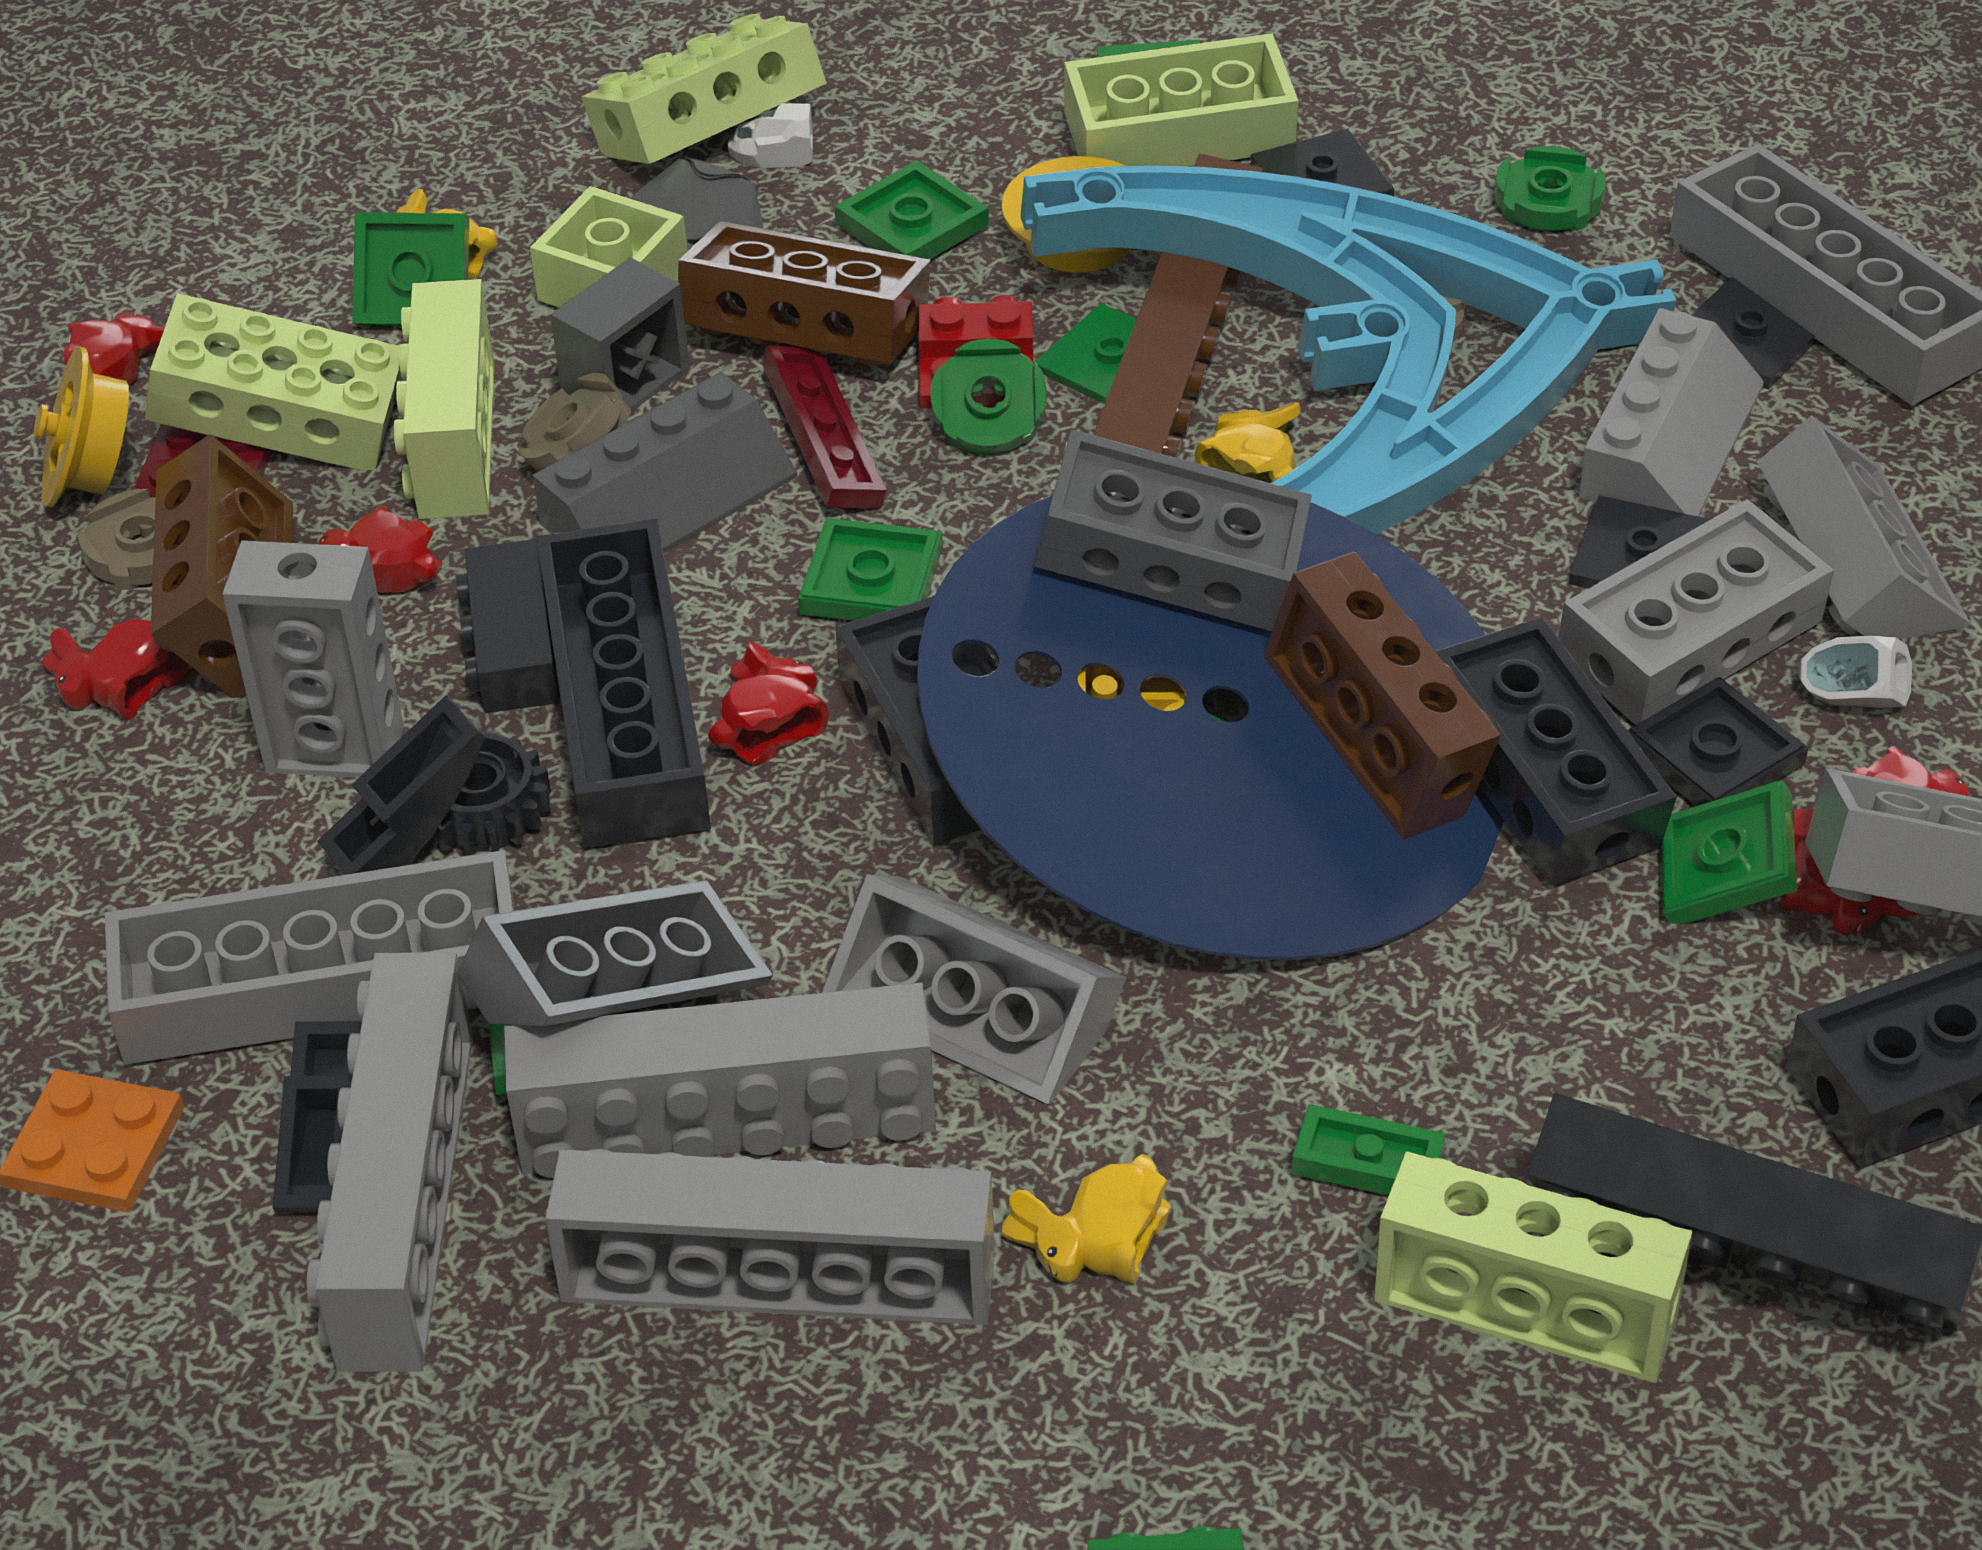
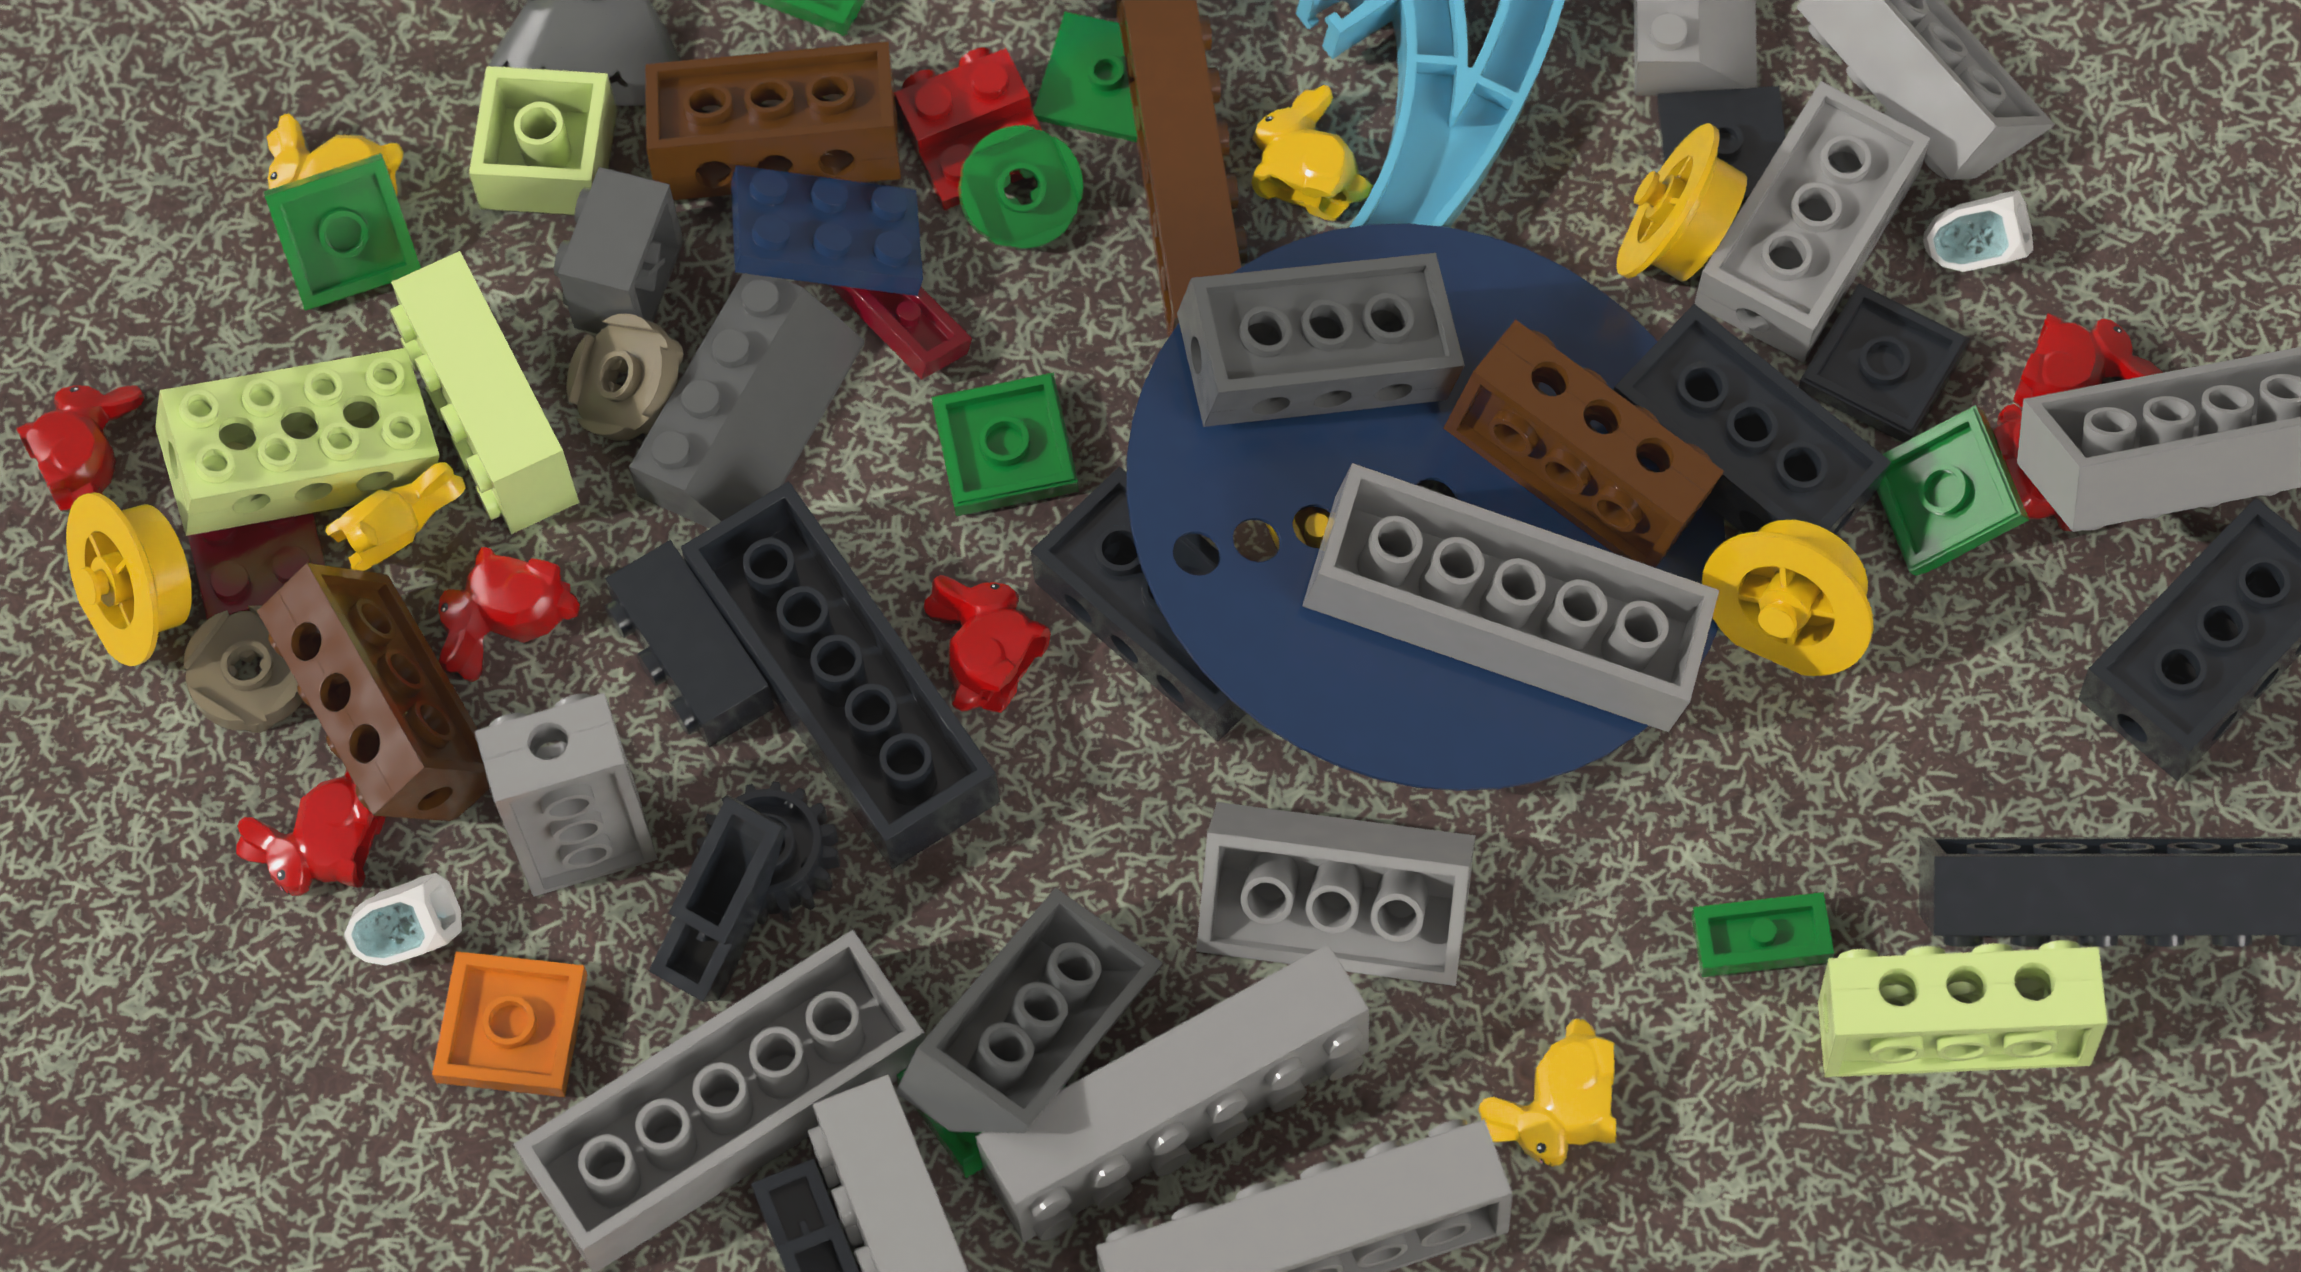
camera: 20 degrees left, 20 degrees up
(142, 742) = (404, 921): none -> white rock
(178, 847) = (510, 1024): none -> orange plate
(309, 463) = (393, 517): none -> yellow animal
(802, 372) = (826, 230): none -> dark blue plate
(1251, 783) = (1511, 598): none -> light grey brick
(1526, 873) = (1792, 597): none -> yellow wheel
(1571, 559) = (1683, 209): none -> yellow wheel

